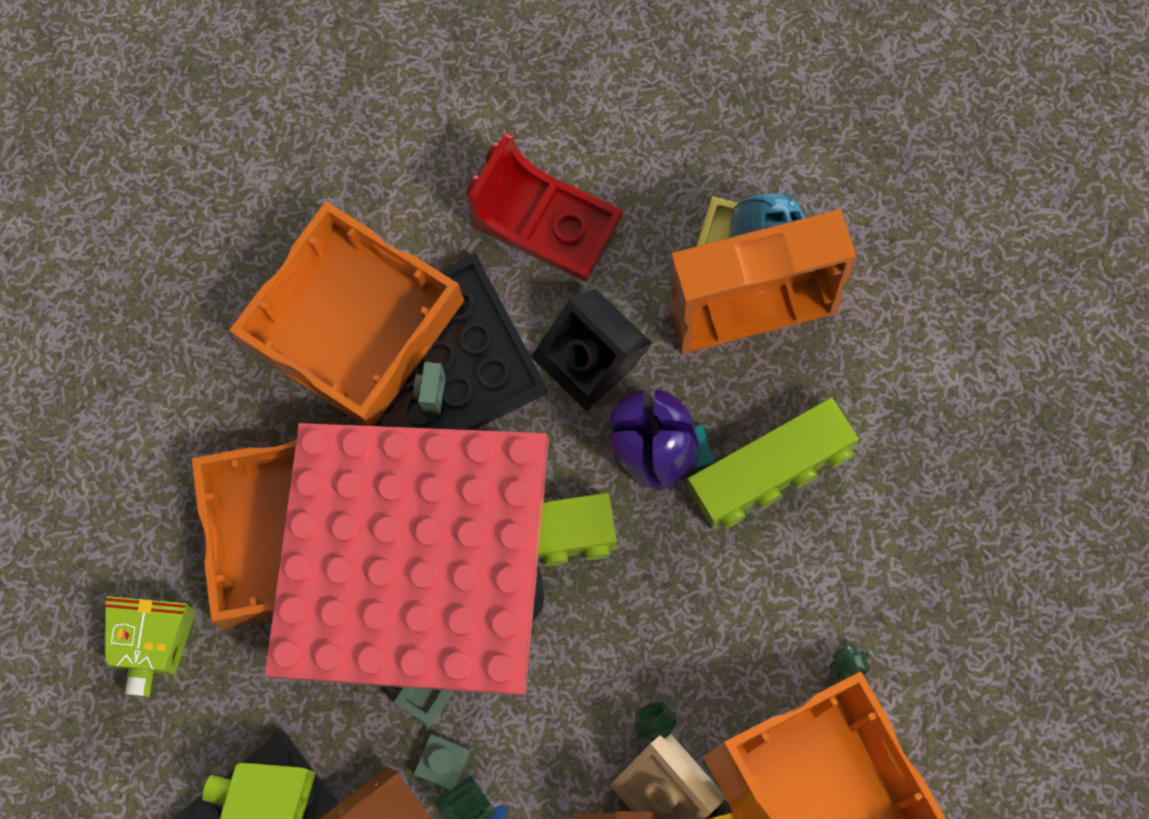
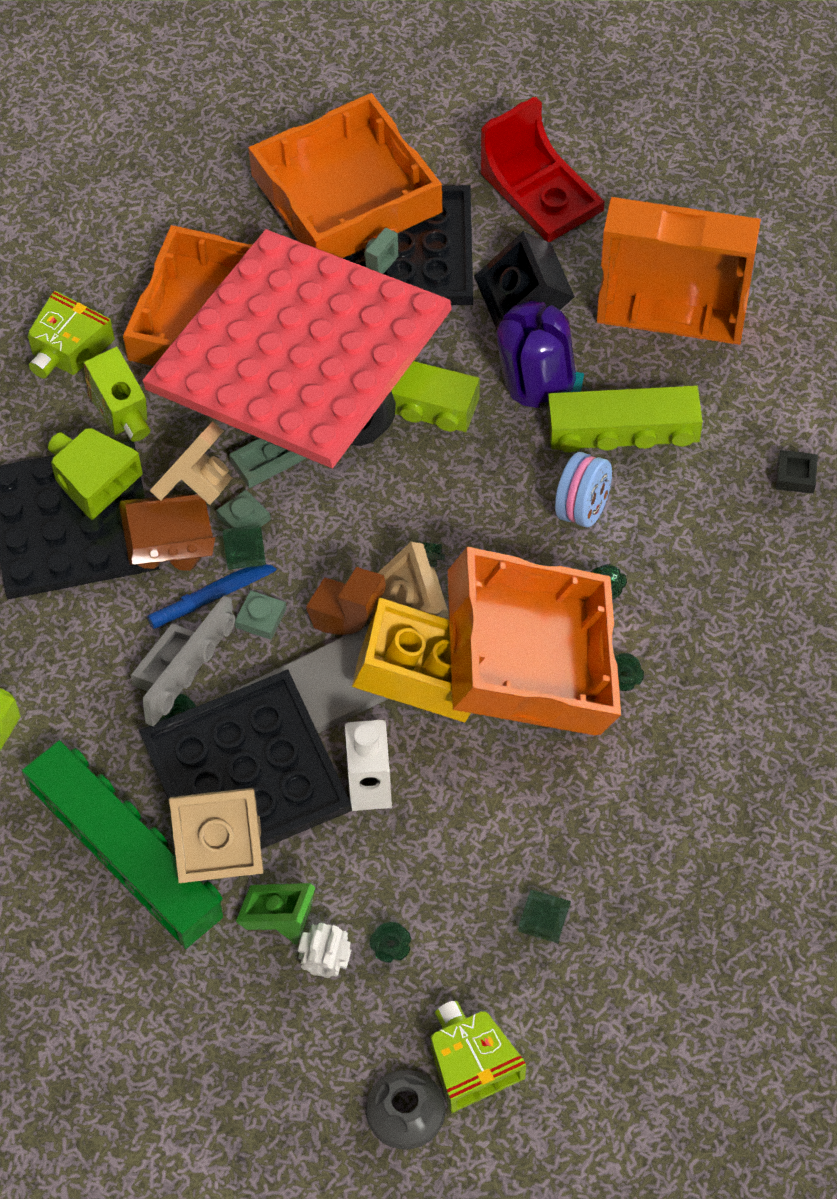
camera: 20 degrees right, 15 degrees down
(225, 686) = (117, 394): none -> lime torso
(373, 752) = (199, 471): none -> tan bracket
(779, 575) = (583, 489): none -> light blue head
(928, 756) = (631, 665): none -> clear green plate
(970, 443) = (797, 471): none -> pearl dark grey plate

